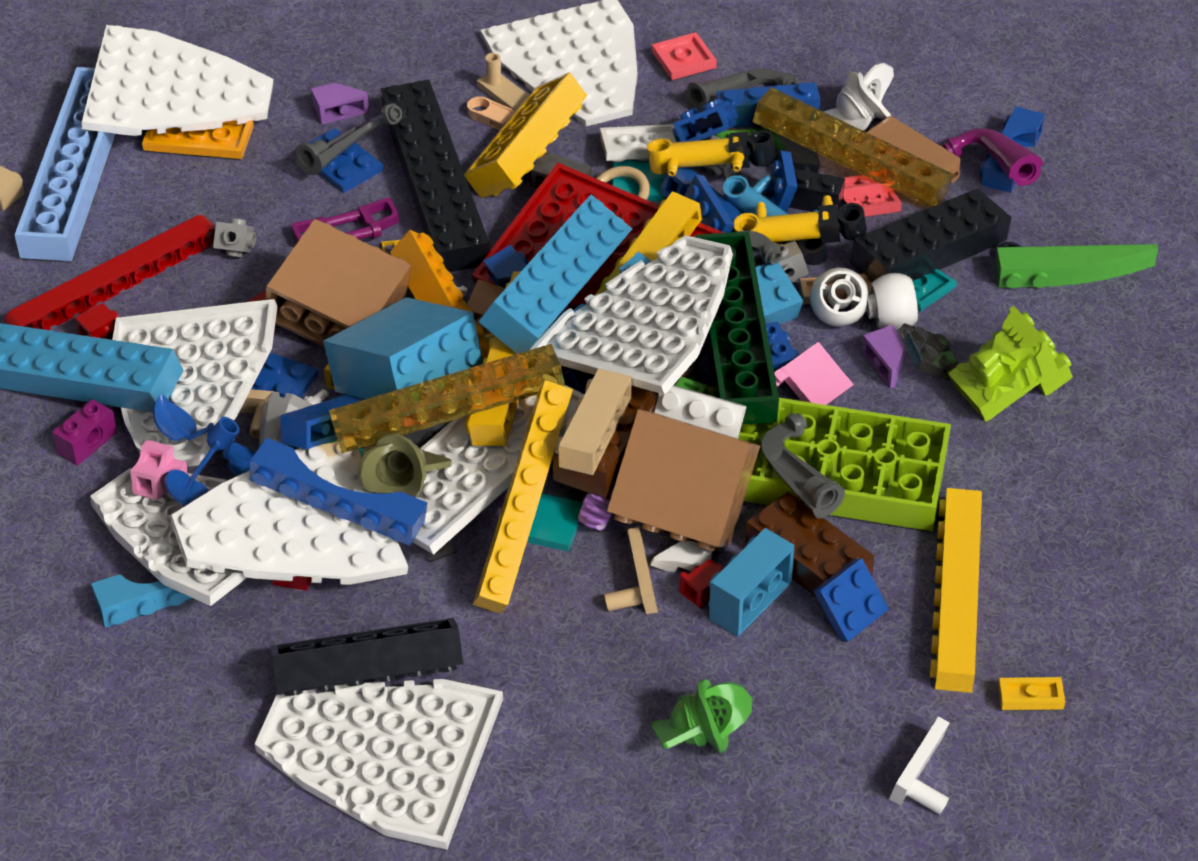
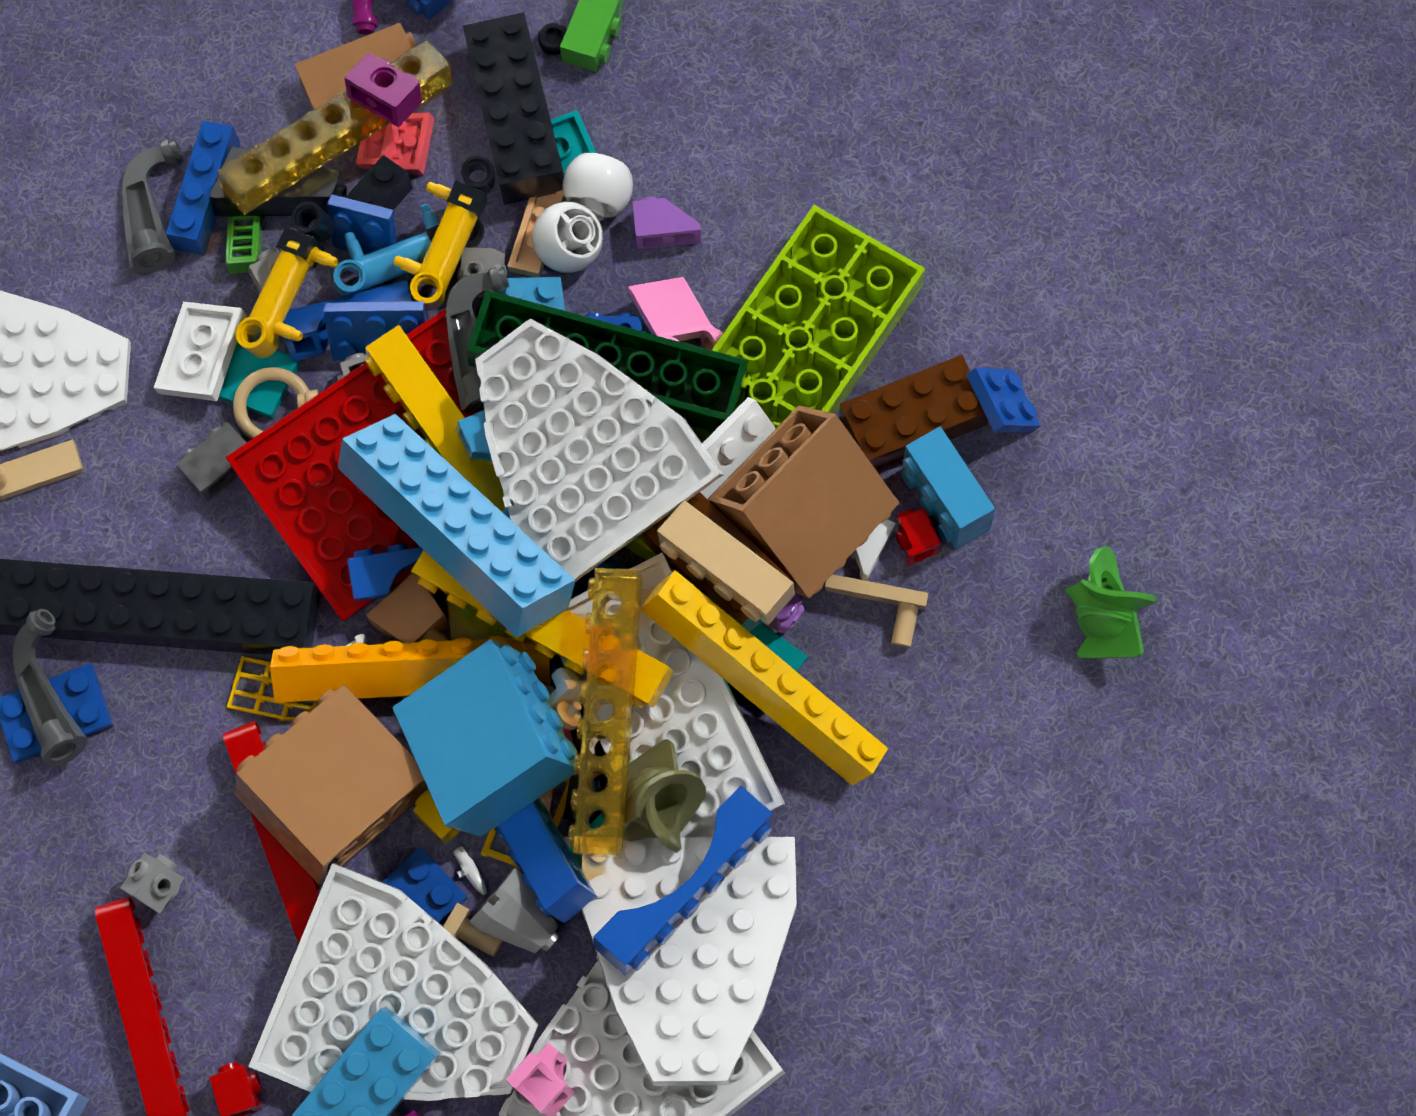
camera: 65 degrees left, 25 degrees up
(175, 425) = (539, 982): blue plant -> none
(367, 655) = (906, 921): black brick -> none
(371, 228) = (168, 714): magenta bar -> none
(384, 752) = (1022, 941): white wing -> none
(494, 116) = (63, 500): light nougat piece -> none
(526, 136) = (138, 477): yellow brick -> none
(684, 56) = (61, 246): coral plate -> none
(713, 119) = (220, 267): blue brick -> none
(809, 485) = (853, 379): dark grey animal -> none
(858, 101) = (254, 91): white helmet -> none
(891, 151) = (383, 89): none -> magenta brick
(909, 785) = (1240, 440): white piece -> none
(928, 351) = (683, 180): clear smoke plate -> none
(958, 591) = (1020, 293): yellow brick -> none
(1010, 367) = (749, 114): lime brick -> none
(1031, 693) = (1171, 283): yellow plate -> none

